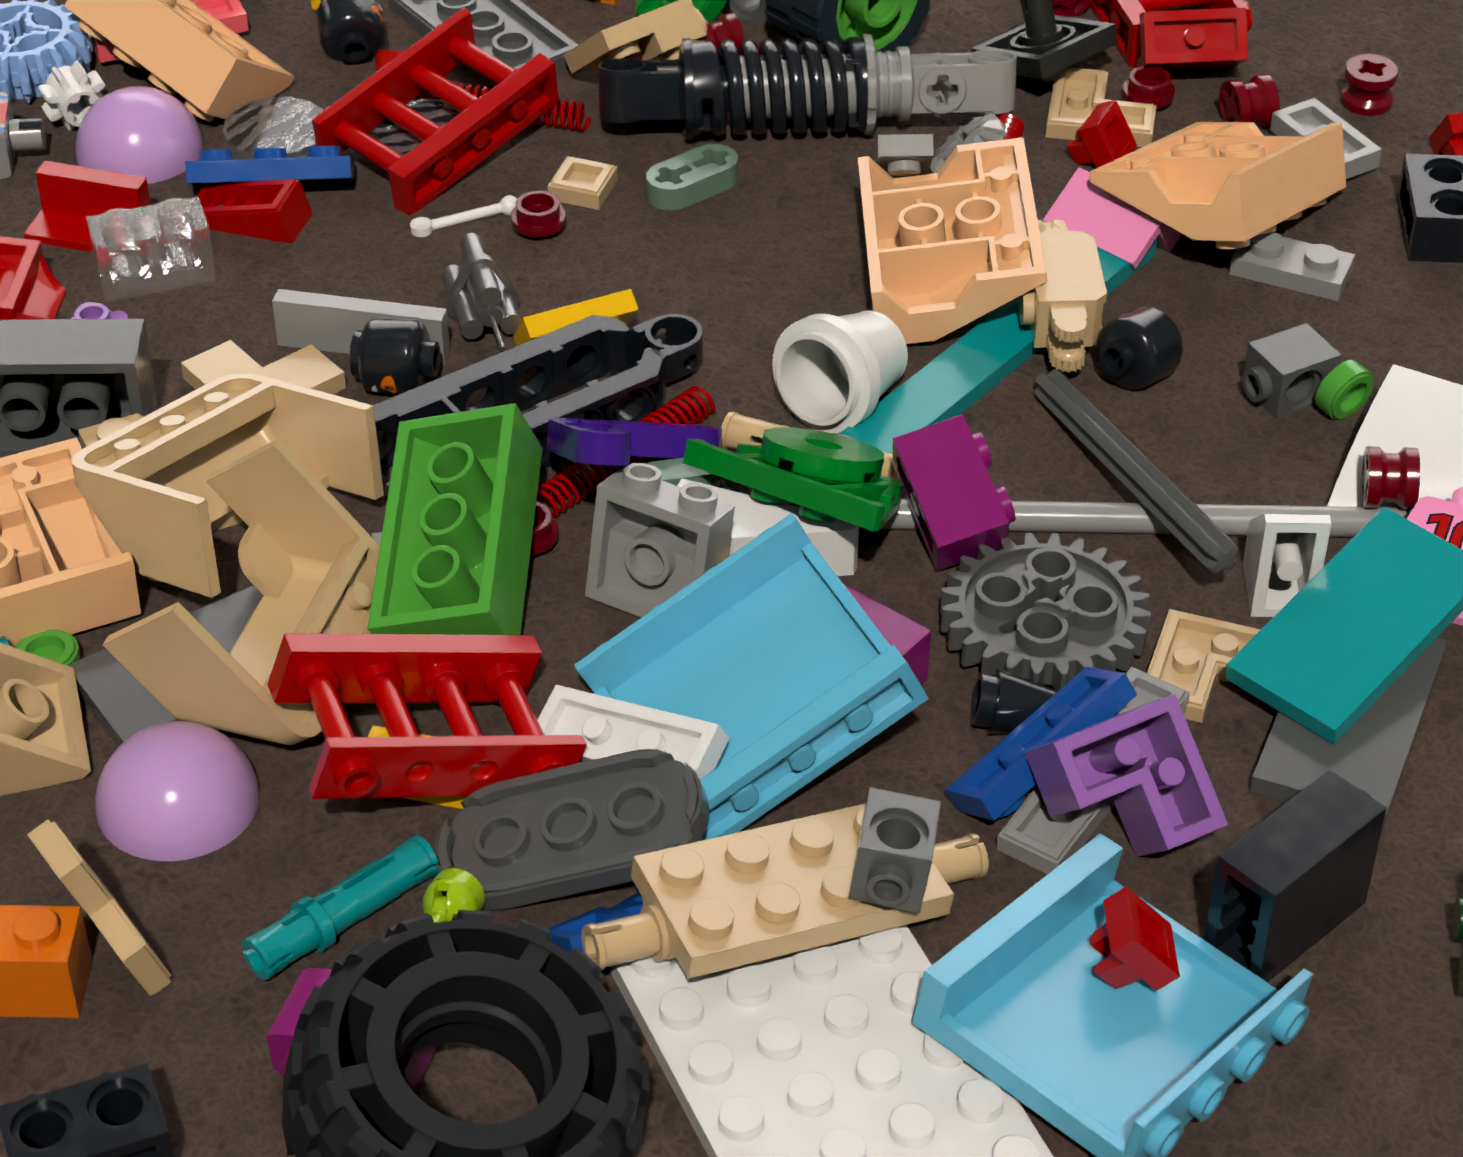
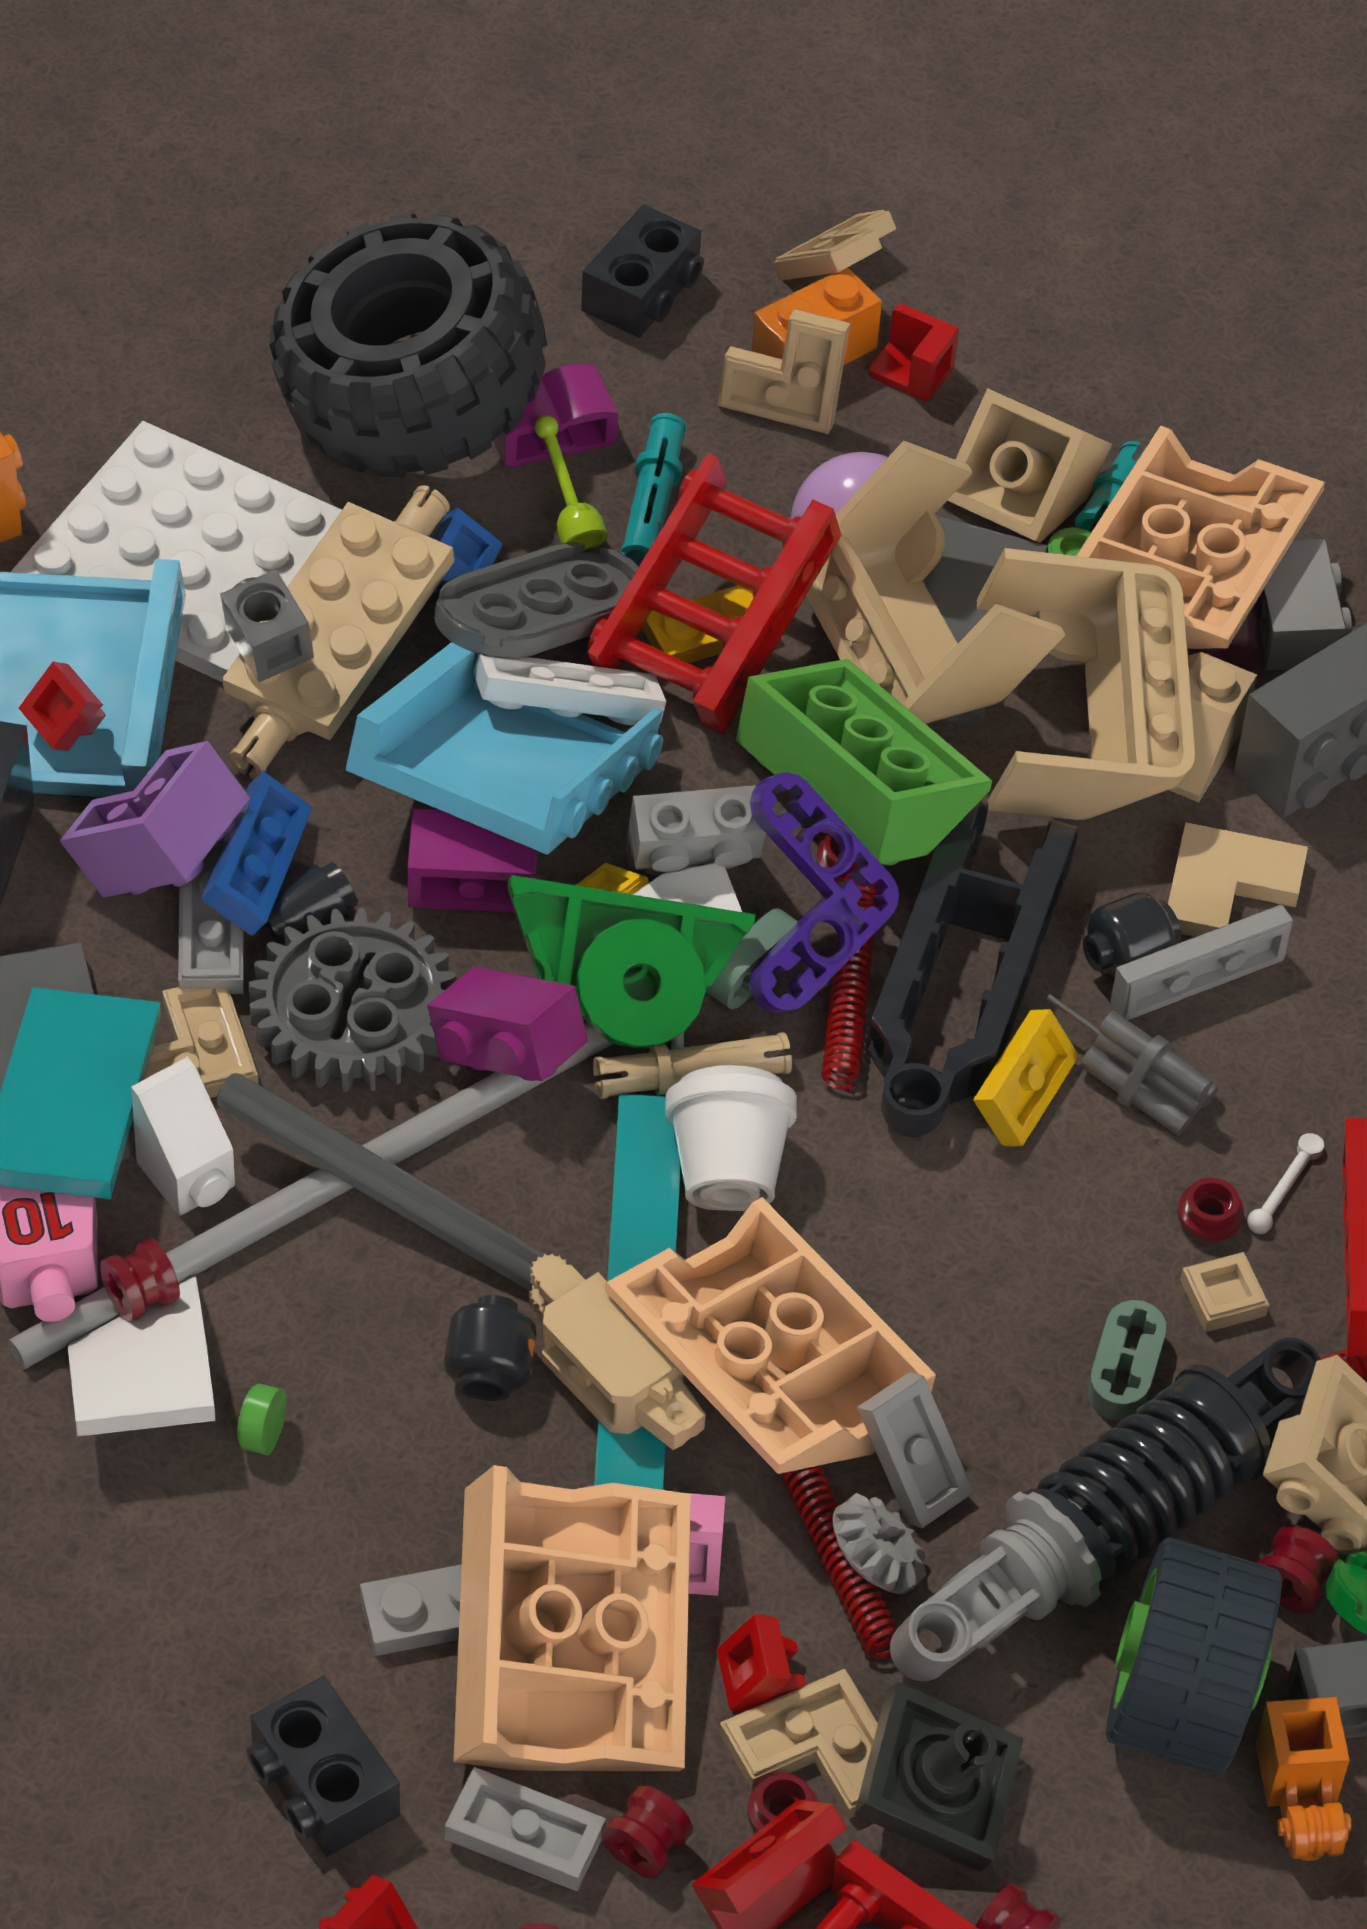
camera: 140 degrees right, 10 degrees up
(1287, 370) = (328, 1409): dark grey brick -> none

